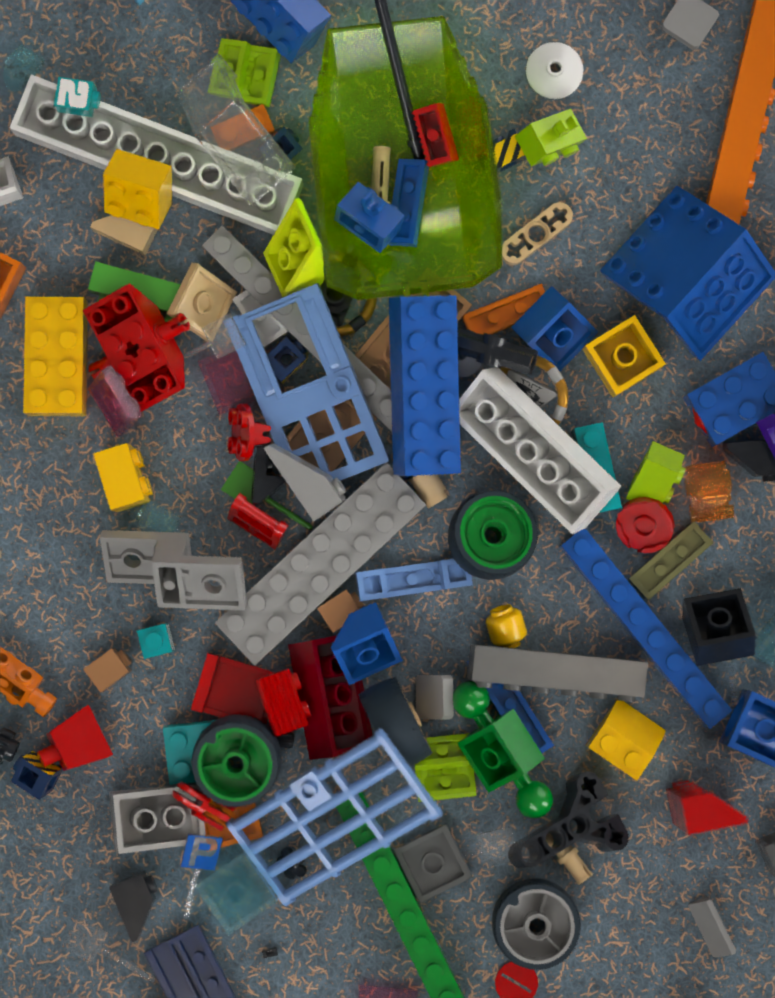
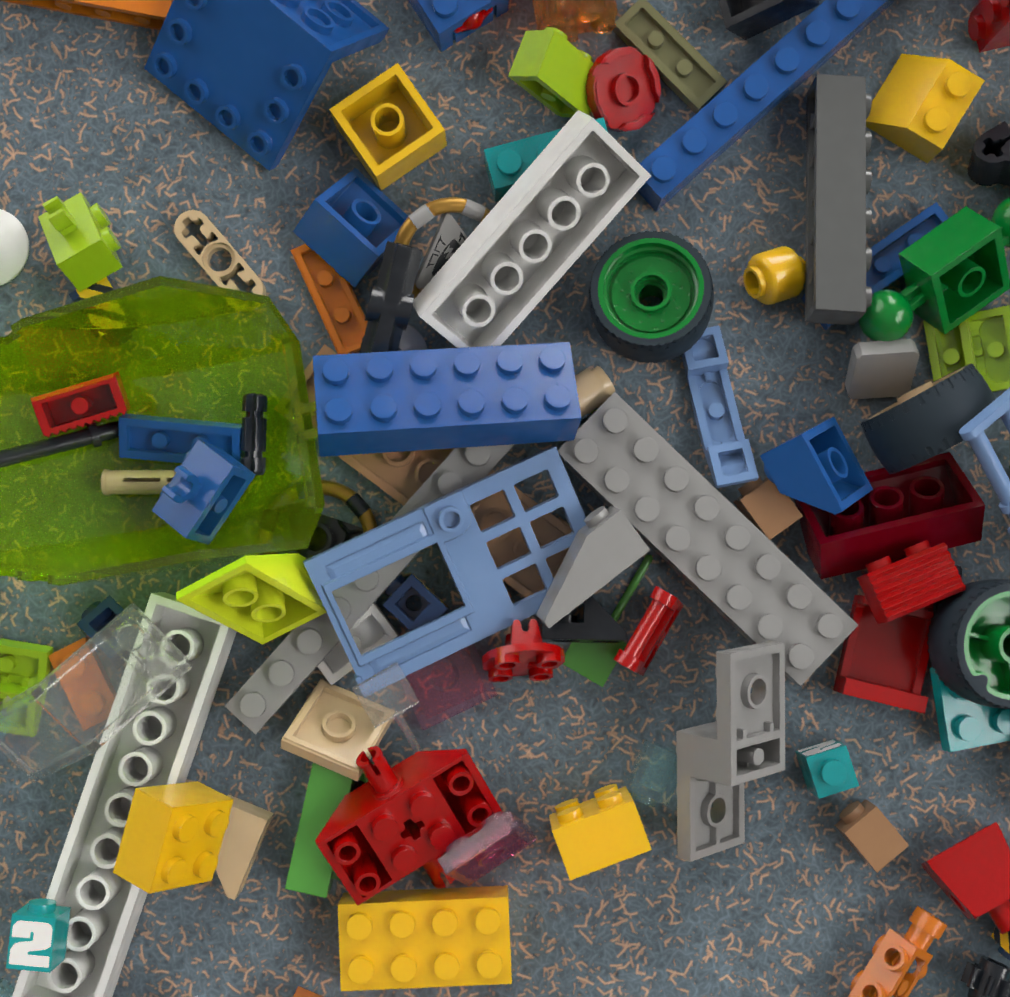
camera: 95 degrees left, 0 degrees up
(410, 253) = (254, 432): none -> black axle

